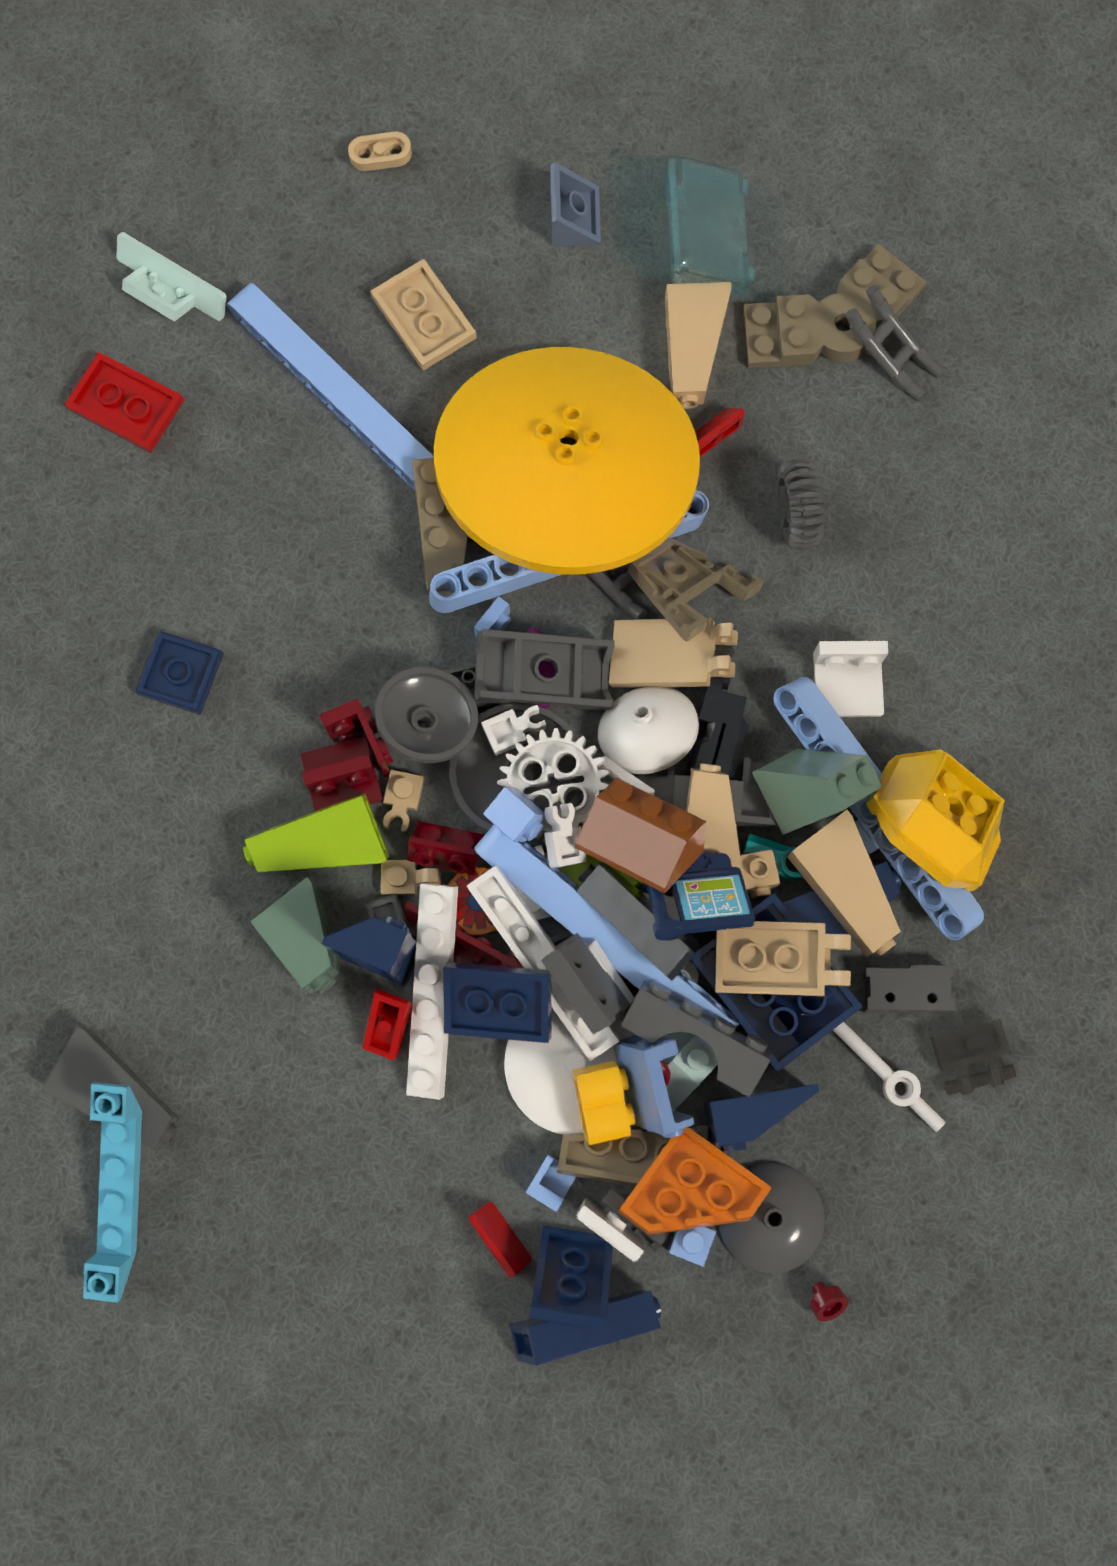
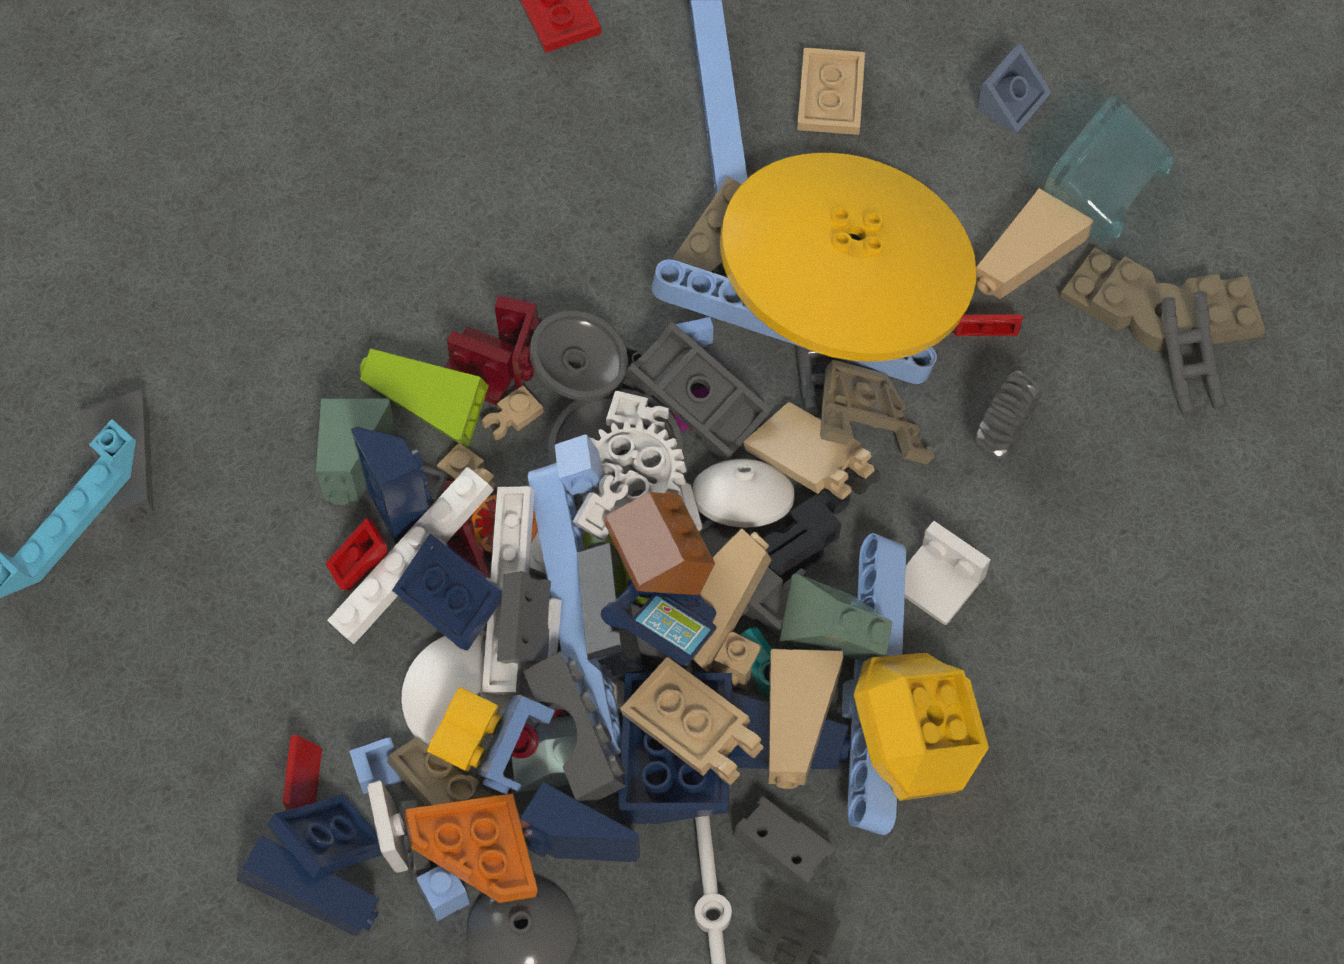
camera: 40 degrees right, 15 degrees down
(179, 672) = (430, 211): dark blue plate -> none
(444, 848) = (506, 460): dark red bracket -> none

